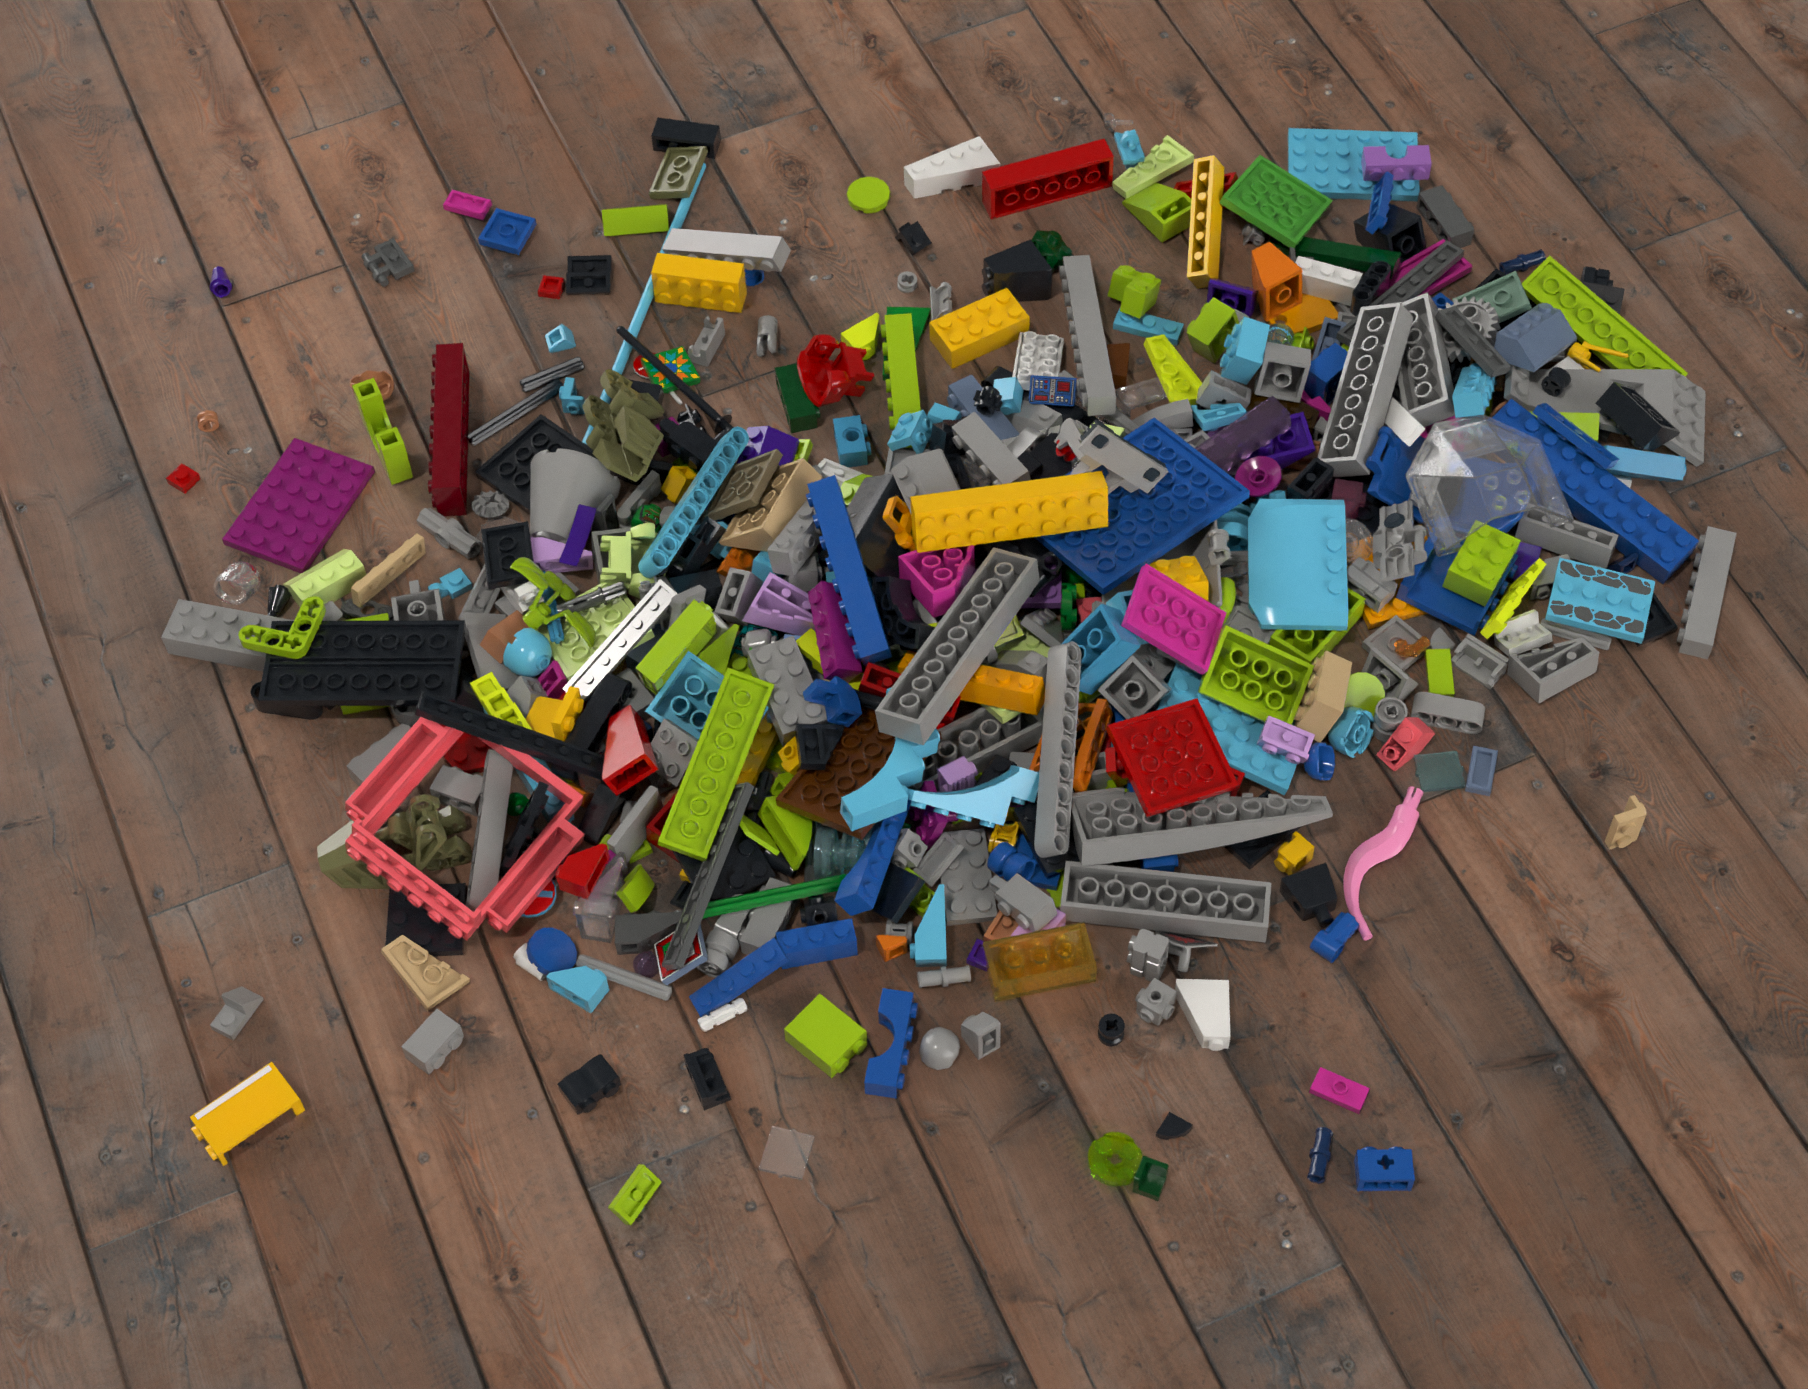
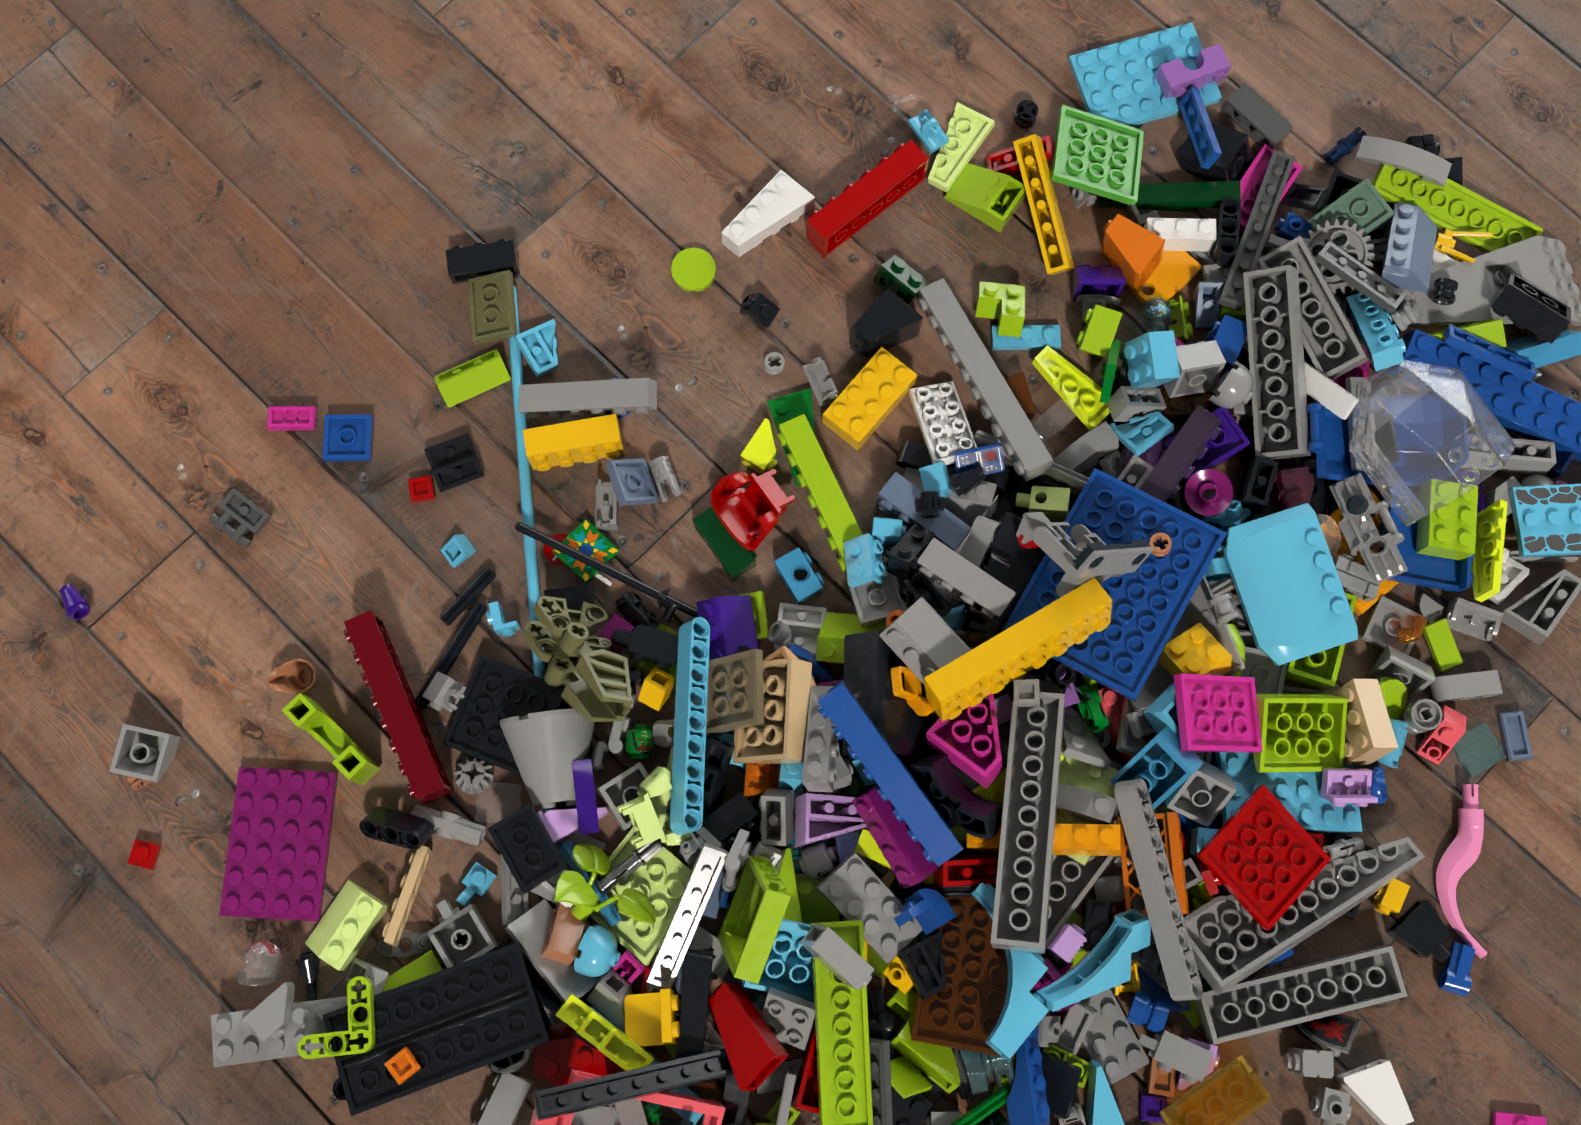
camera: 25 degrees left, 20 degrees up
(223, 397) = (144, 753): none -> light grey slope
(233, 604) = (273, 1014): none -> light grey slope
(320, 675) = (402, 1065): none -> orange tile
(404, 516) = (396, 828): none -> black beam
(495, 433) = (444, 693): none -> light grey brick
(704, 210) = (539, 347): none -> medium azure wing
(734, 687) = (837, 956): none -> light grey brick
(735, 327) = (631, 481): none -> sand blue tile
(1001, 546) = (1026, 693): none -> light grey plate
(1034, 400) = (966, 481): none -> black cone
(1182, 475) = (1164, 538): none -> nougat bush
(1208, 359) = (1108, 371): none -> green plate
(1228, 158) = (1028, 108): none -> black wheel
(1258, 790) = (1350, 847): none -> light grey pin
(1314, 394) = (1233, 387): none -> light grey cylinder
(1461, 285) = (1306, 197): none -> black tile
(1504, 385) = (1405, 316): none -> light grey wheel
(1563, 266) = (1404, 157): none -> light grey slope

